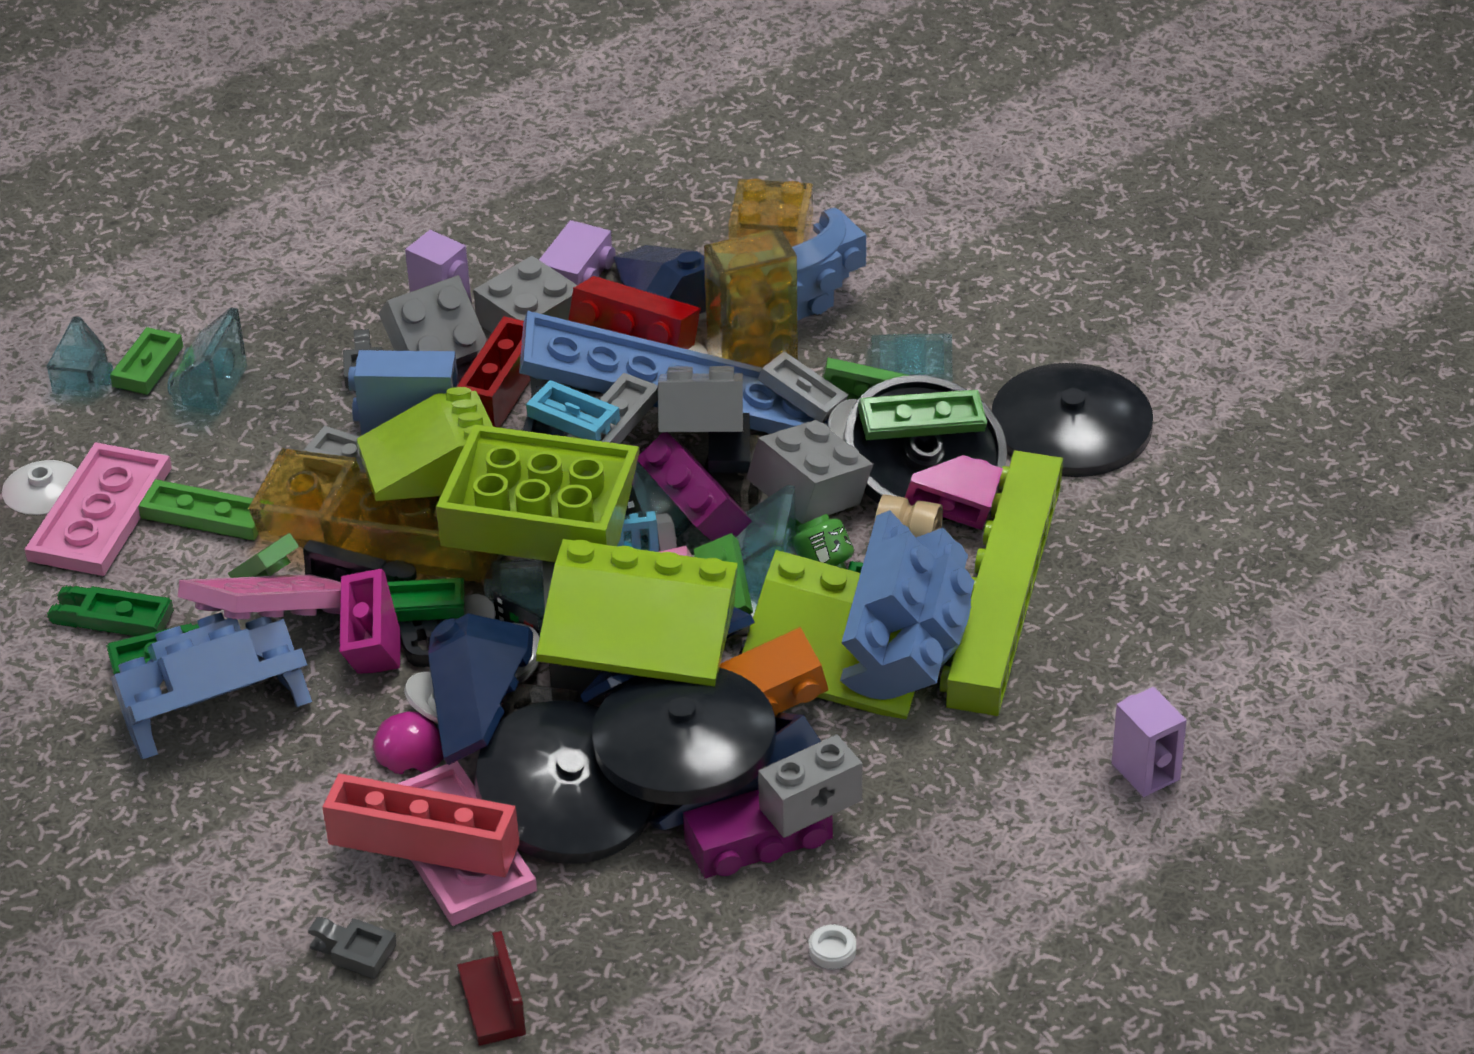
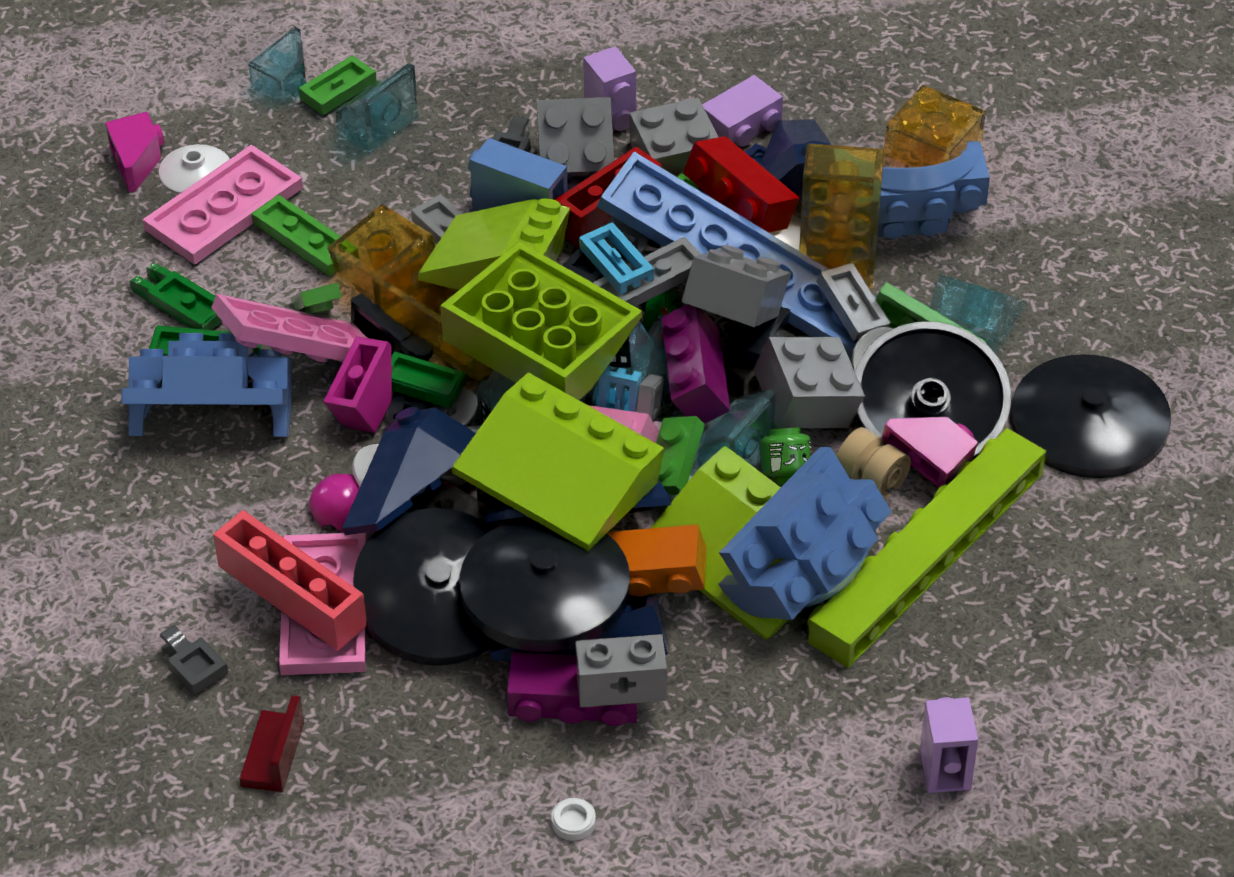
camera: 25 degrees right, 5 degrees up
(922, 414) = (939, 365): bright green tile -> none

